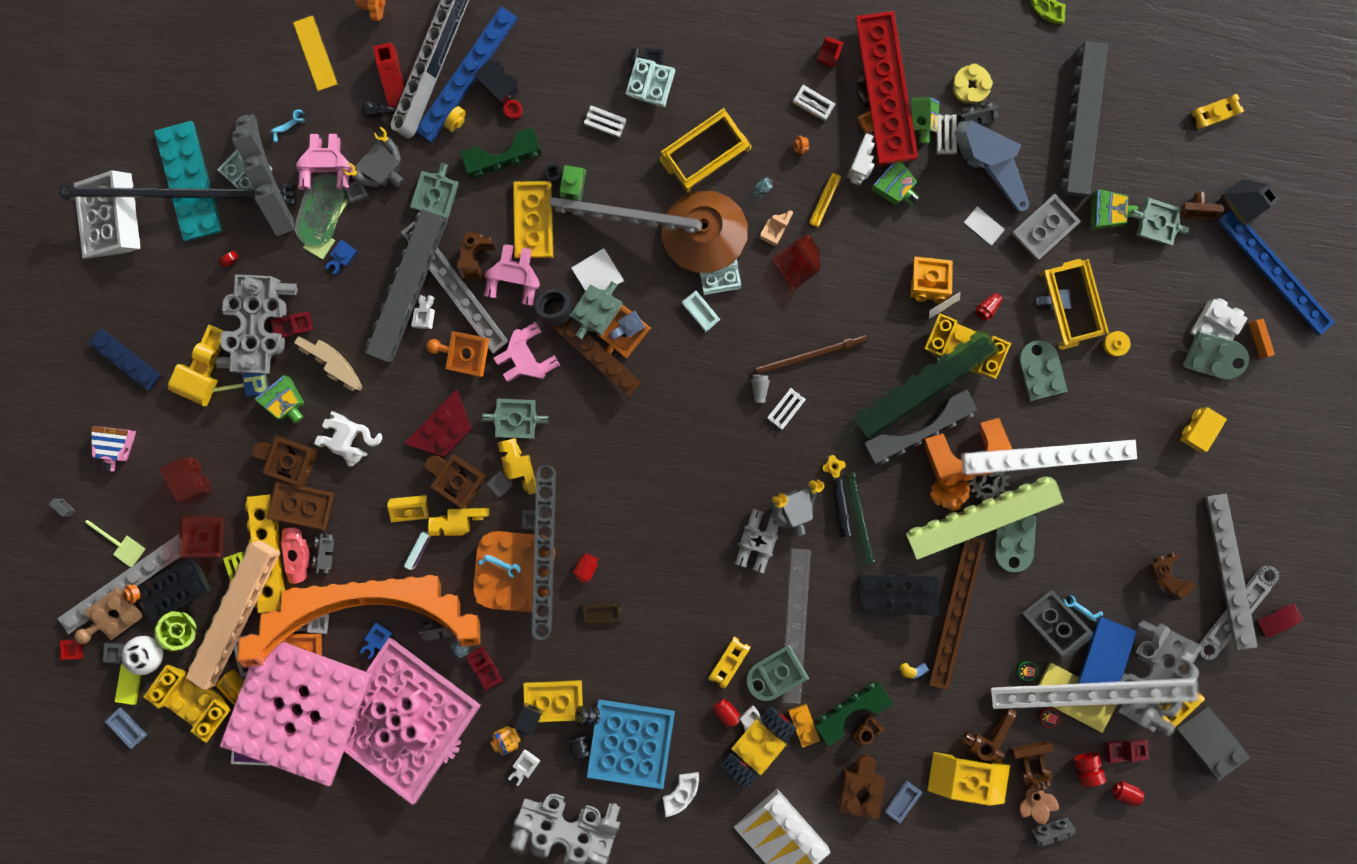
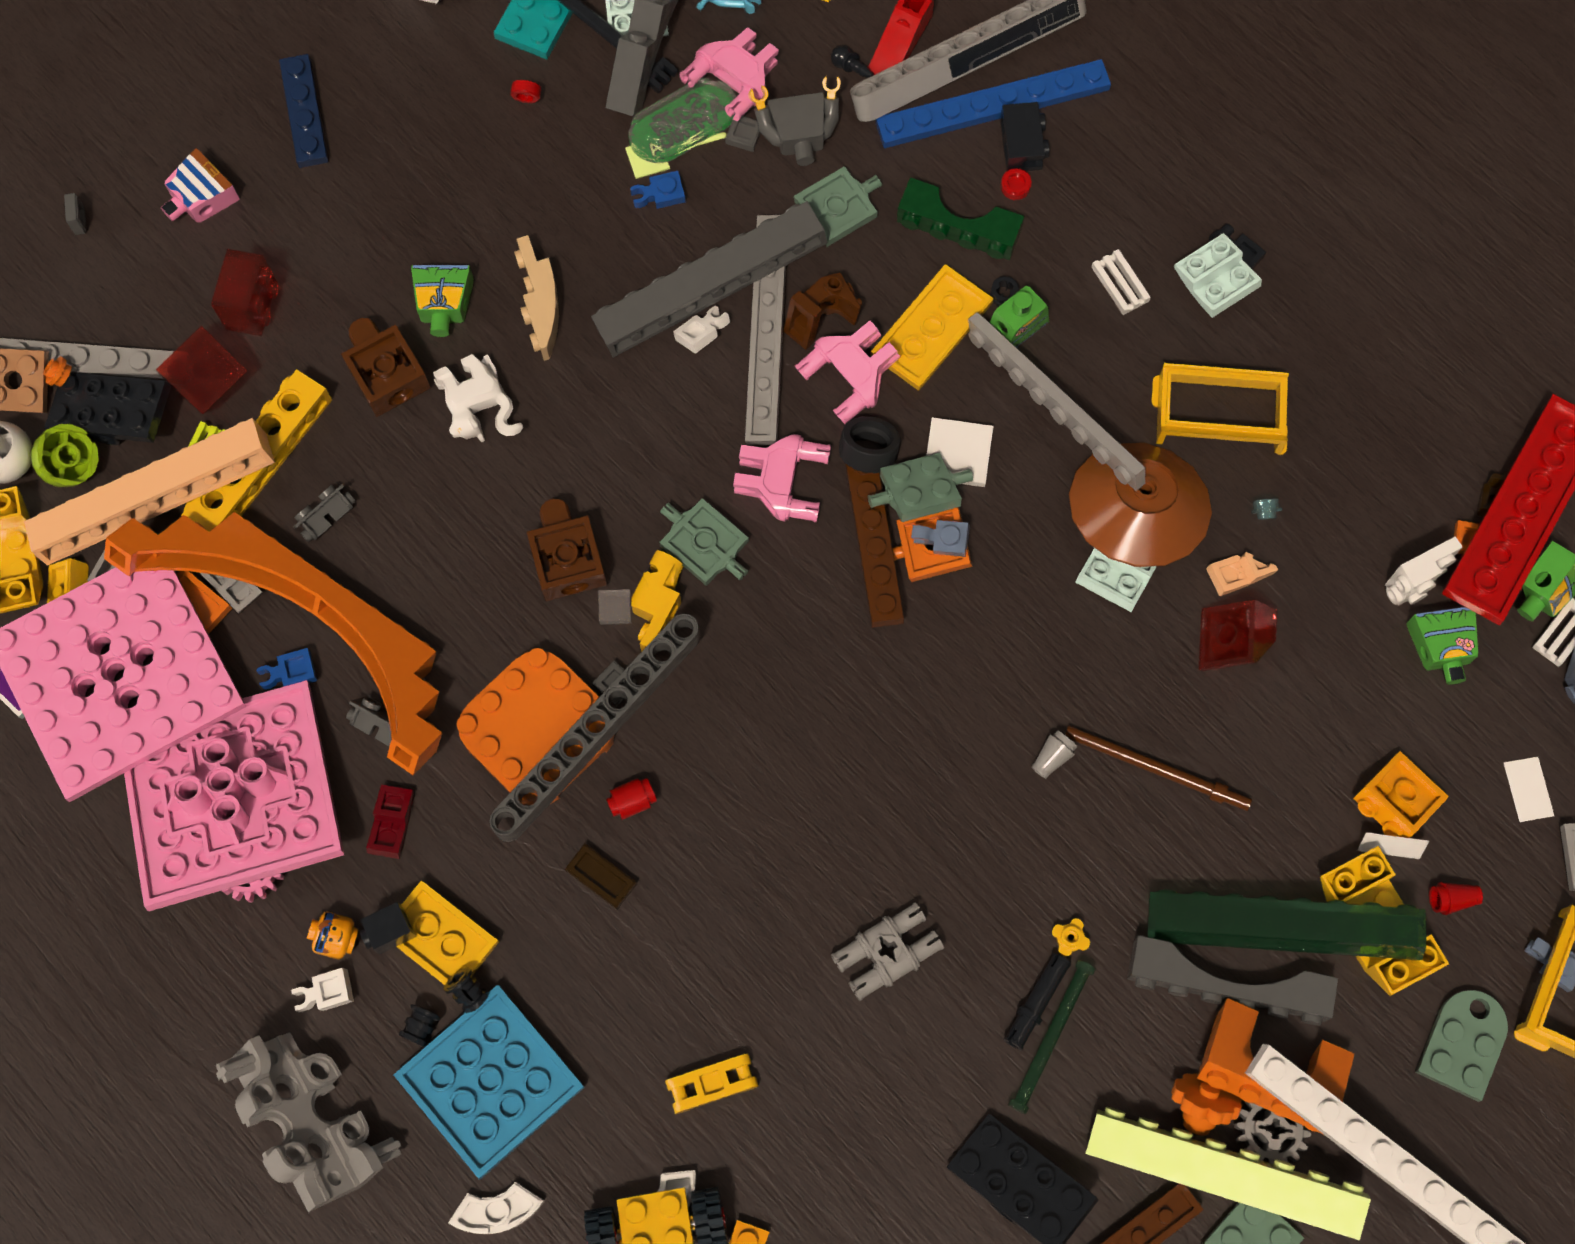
camera: 45 degrees right, 15 degrees down
(127, 551) = (101, 325): yellowish green piece -> none
(195, 381) = (360, 196): yellow plate -> none
(252, 382) = (424, 250): piece -> none
(265, 291) = (536, 157): light grey gear -> none
(292, 325) = (526, 220): dark red slope -> none
(292, 540) = (274, 505): coral piece -> none
(300, 505) = (349, 432): reddish brown tile -> none
(408, 508) = (474, 545): yellow slope -> none
(417, 550) = (440, 602): light aqua tile -> none
(443, 428) = (604, 483): dark red wing -> none
(455, 119) = (936, 138): yellow wheel -> none
(457, 521) = (520, 606): yellow plate -> none
(458, 344) = (711, 397): orange plate -> none
(460, 651) = (382, 770): clear light blue plate -> none
(495, 561) = (528, 699): medium azure piece -> none
(700, 311) = (1054, 599): light aqua tile -> none
(726, 713) = (650, 1149): red brick -> none
(777, 673) = (765, 1152): sand green plate -> none
(796, 396) = (1068, 797): white tile -> none
(796, 507) = (973, 944): torso -> none
(797, 612) = (842, 1112): clear tile -> none
(801, 145) = (1354, 496): orange plate -> none
(808, 108) = (1411, 486): white tile -> none
(825, 200) = (1332, 588): yellow axle -> none
(830, 51) = (1484, 413): red panel -> none

